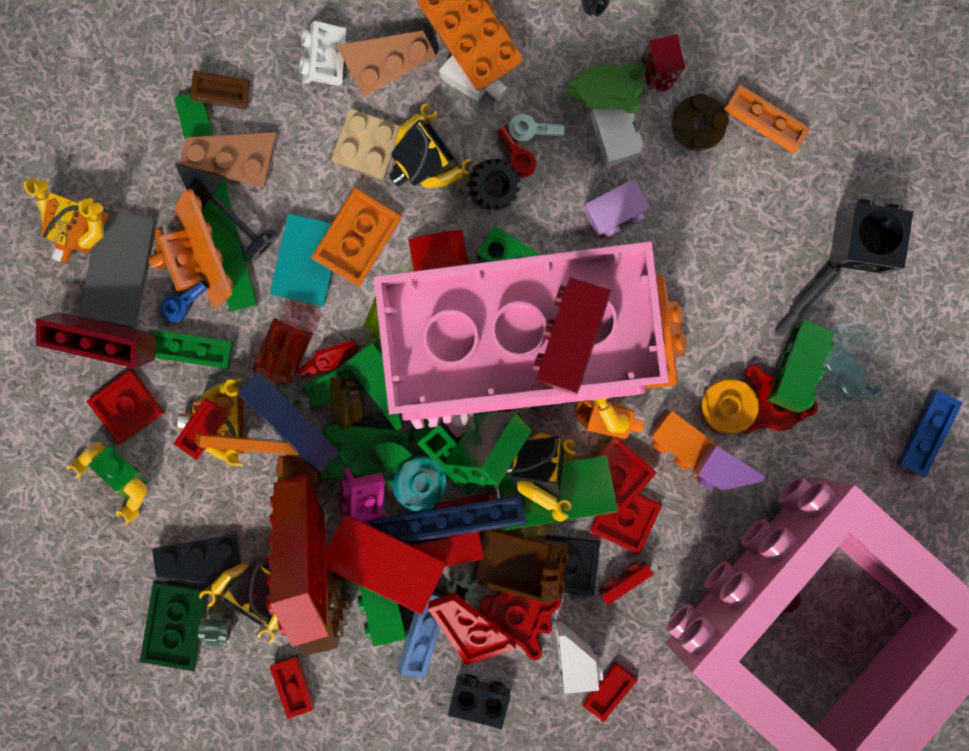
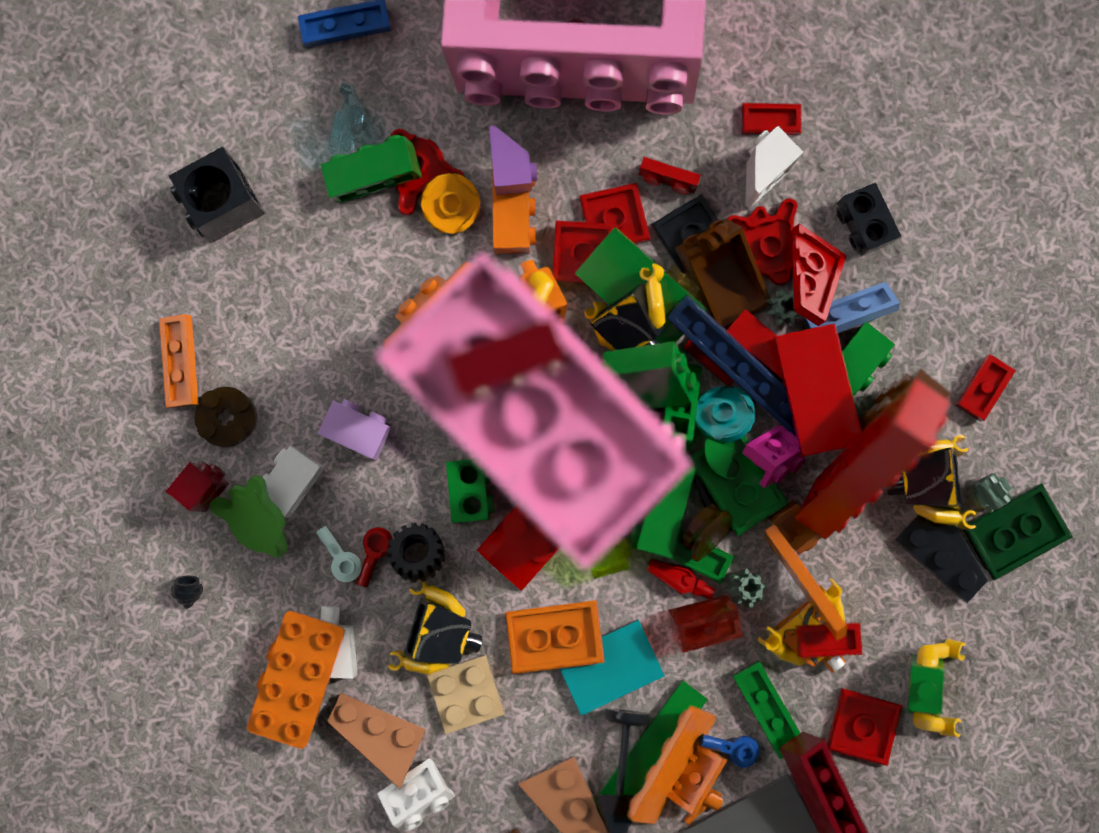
camera: 125 degrees left, 5 degrees down
(288, 423) = (763, 567): dark blue tile -> none
(809, 299) = (307, 207): dark grey axle -> none

